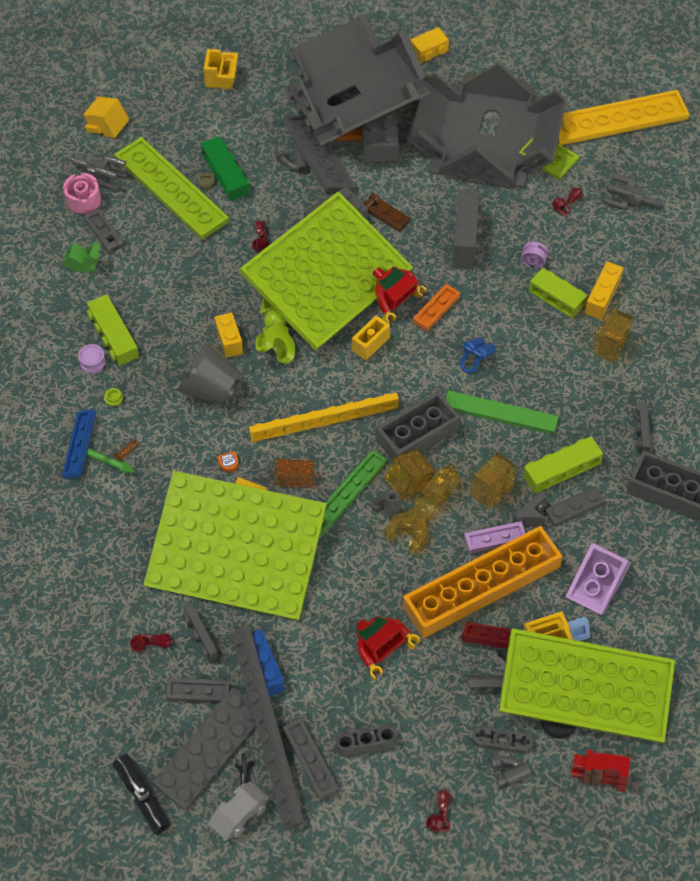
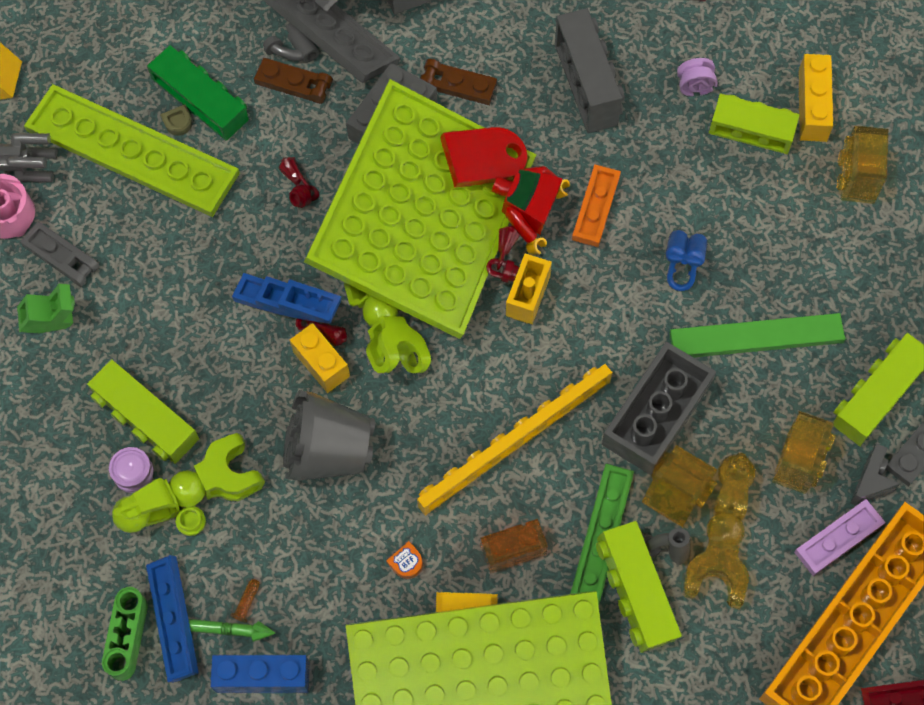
camera: 20 degrees left, 10 degrees up
(48, 442) = (135, 623): none -> bright green beam
(99, 379) = (211, 478): none -> lime piece
(115, 488) = (260, 674): none -> blue brick
(223, 295) = (287, 299): none -> blue slope
(237, 309) = (334, 334): none -> dark red piece
(285, 180) = (293, 80): none -> reddish brown plate
(358, 519) = (638, 587): none -> lime brick
(370, 304) = (507, 239): none -> dark red piece
(376, 252) = (481, 155): none -> red tile

